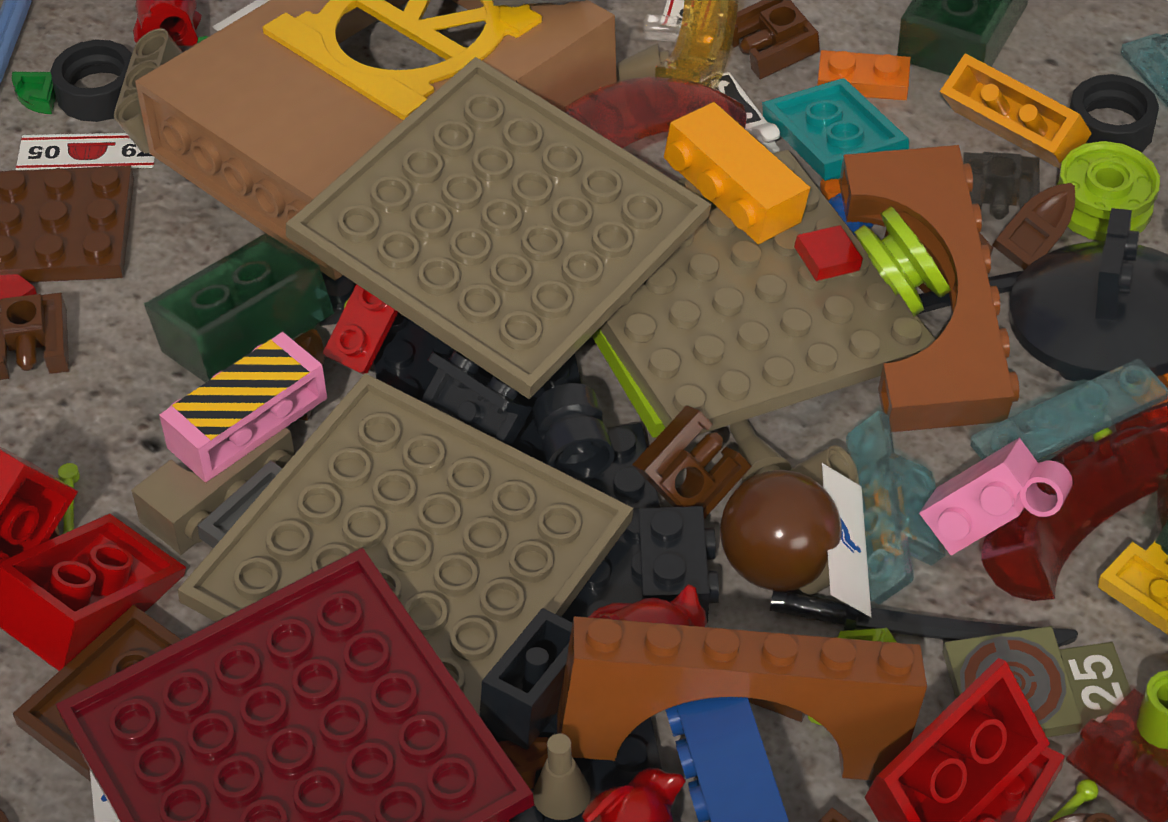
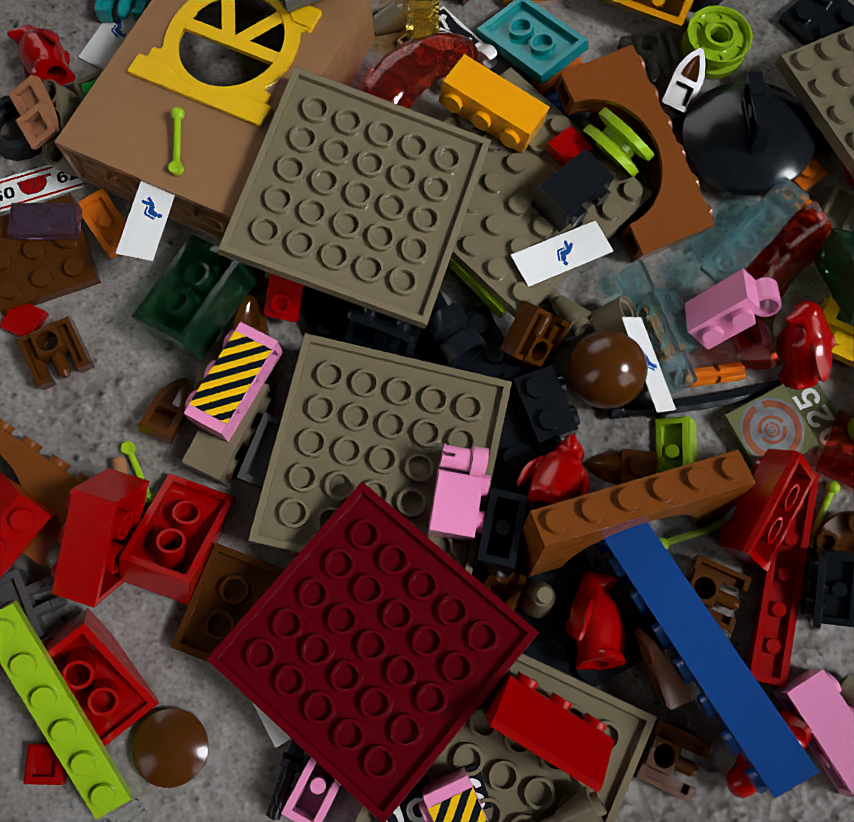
camera: 20 degrees left, 25 degrees up
(83, 182) = (45, 221): none -> clear purple plate
(127, 56) = (36, 111): none -> nougat slope
(132, 442) = (166, 411): none -> reddish brown plate
(162, 209) = (103, 220): none -> orange plate
(208, 189) = (145, 222): none -> white sticker
(275, 135) = (176, 166): none -> lime hinge
(492, 603) = (458, 493): none -> bright pink hinge
(767, 369) = (561, 253): none -> white sticker
(790, 792) = (714, 527): none -> lime hinge
(808, 295) = (572, 190): none -> black brick
(966, 596) = (720, 374): none -> orange piece
(1095, 573) = (805, 347): none -> red animal

